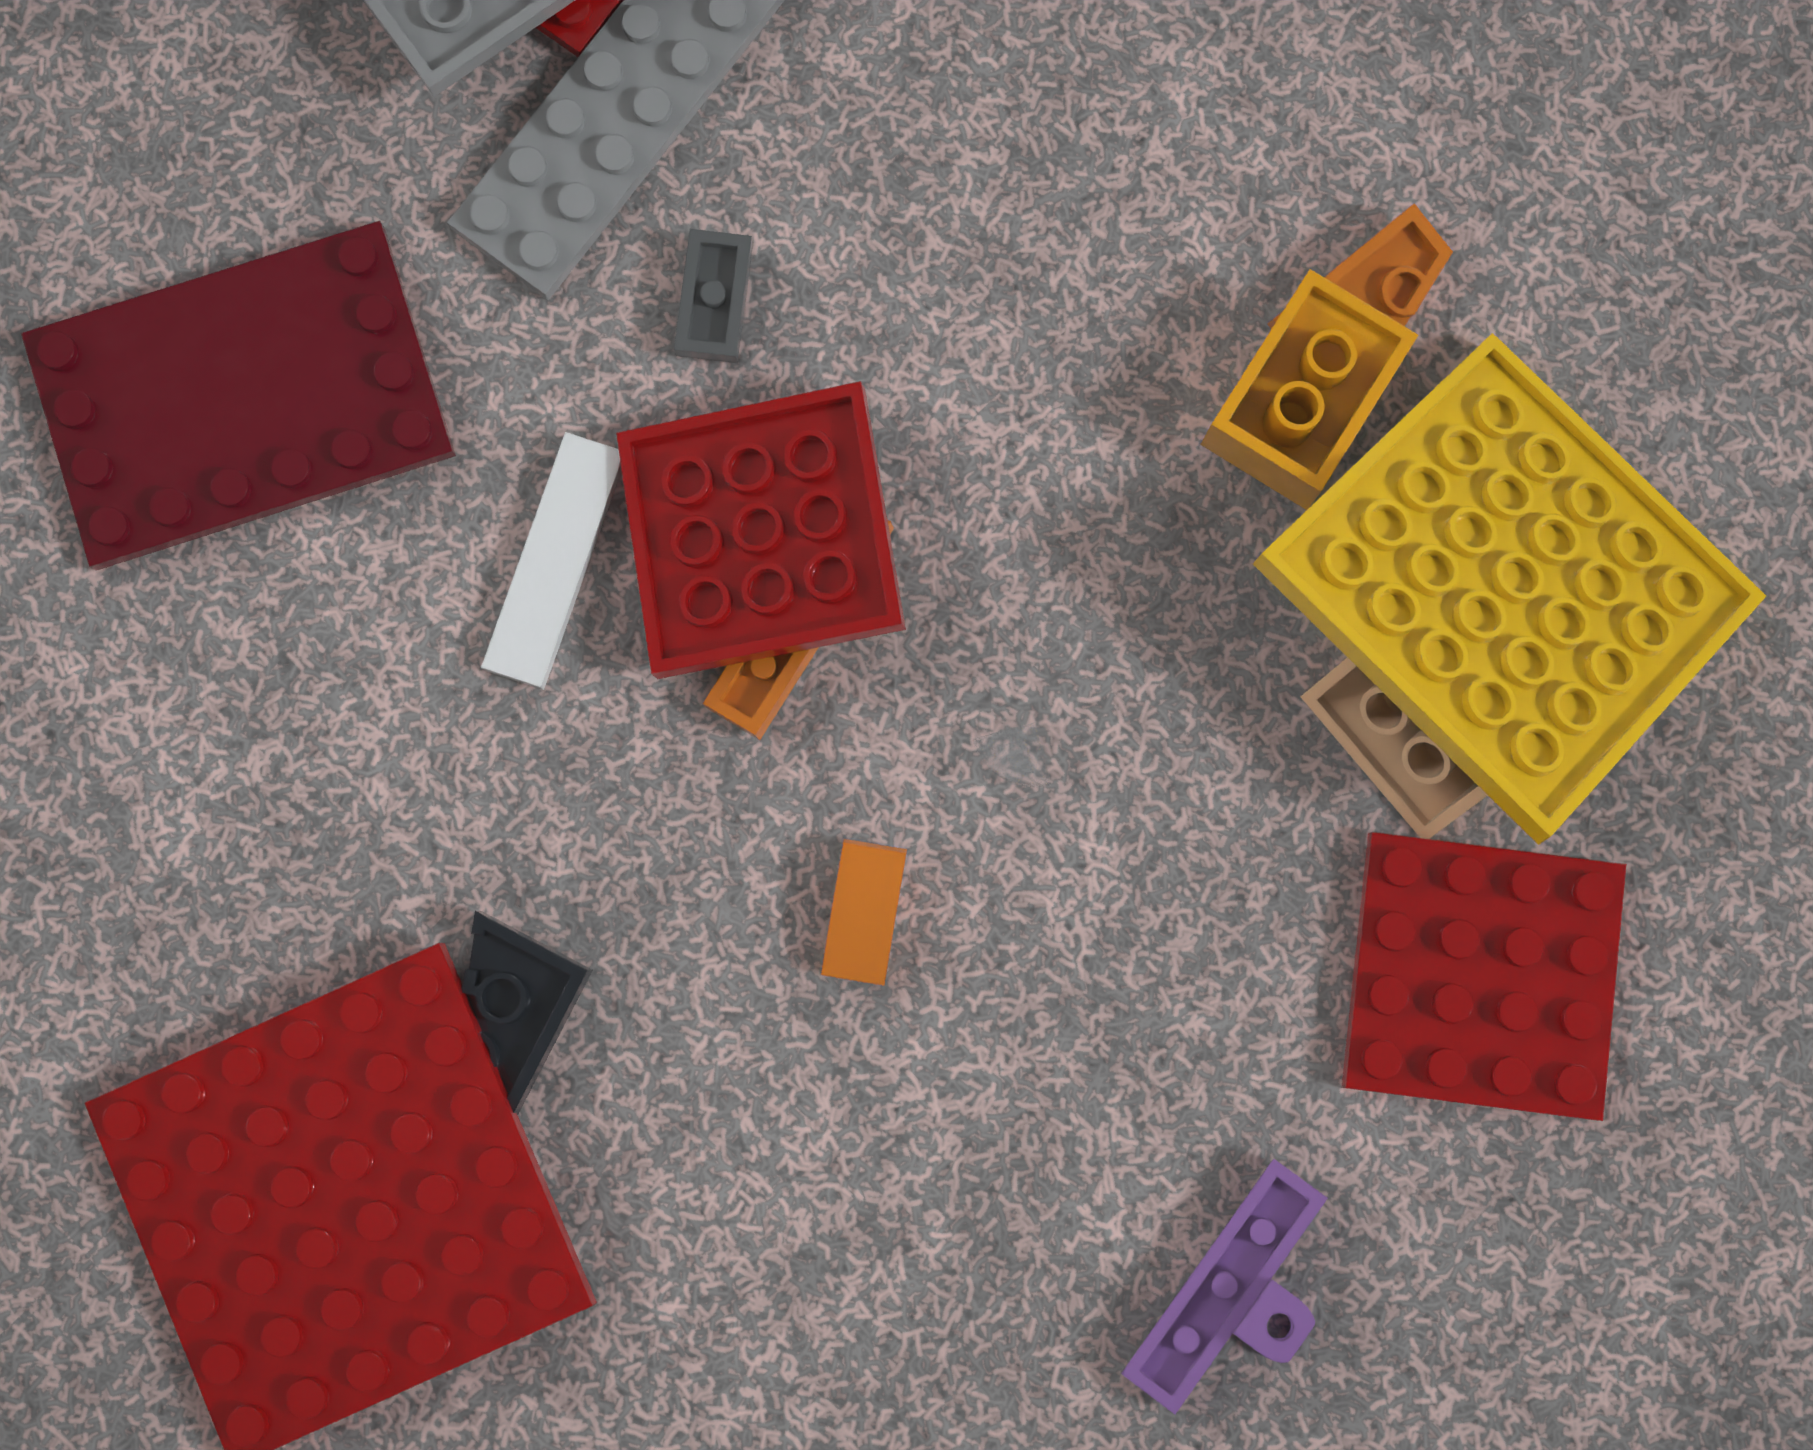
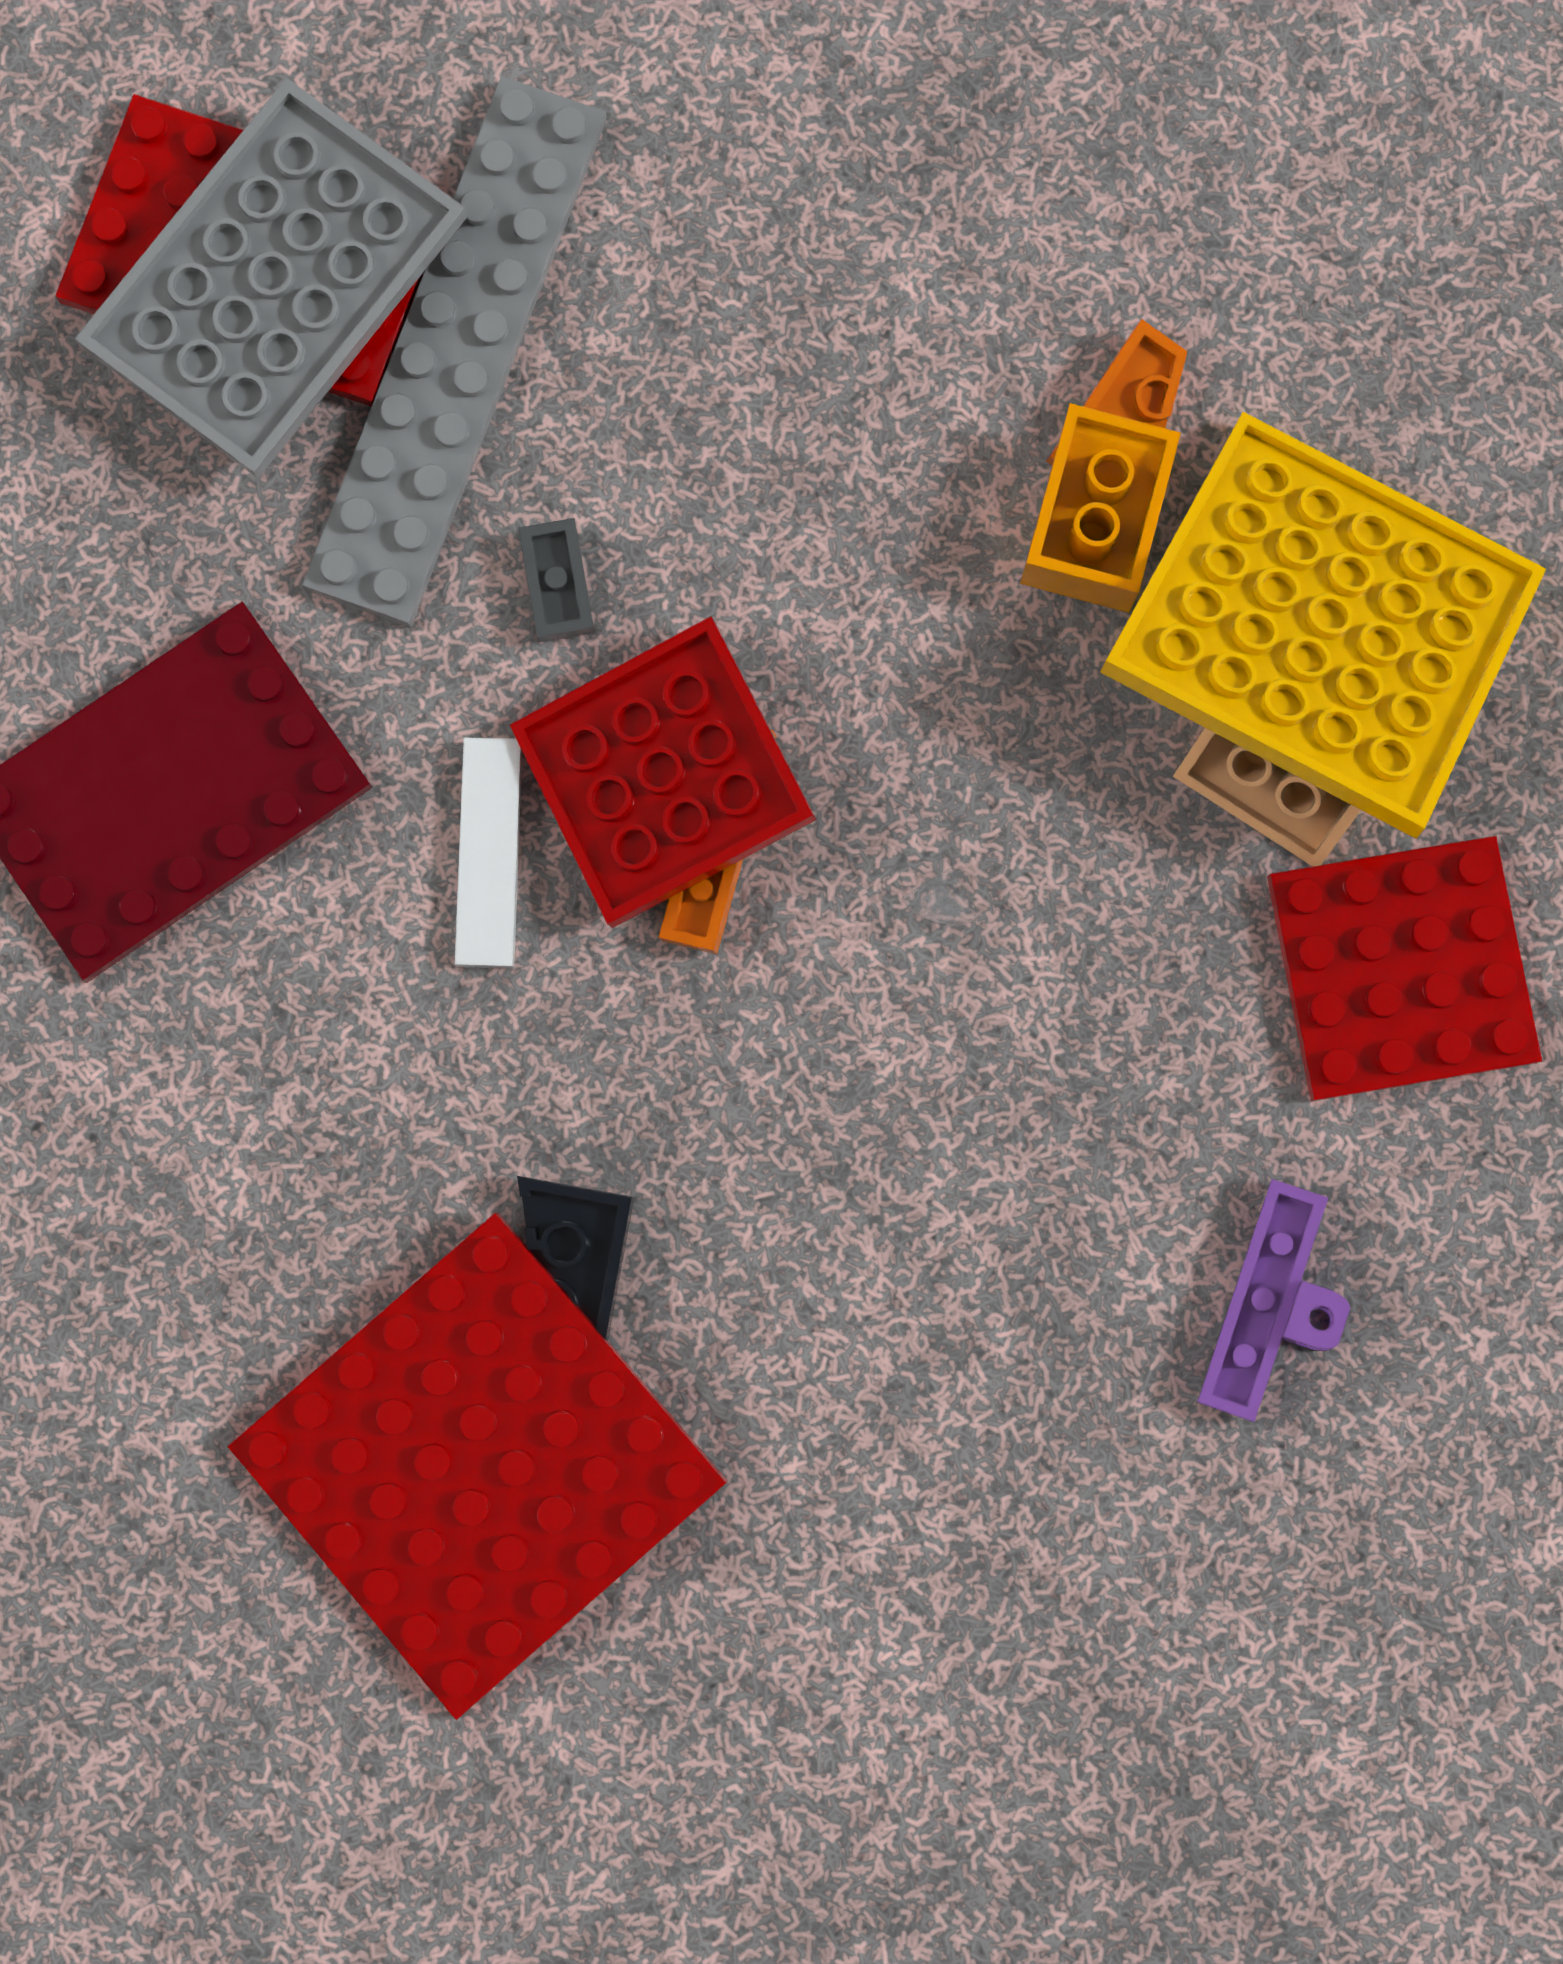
camera: 15 degrees left, 0 degrees up
(863, 912) = (854, 1075): orange slope -> none

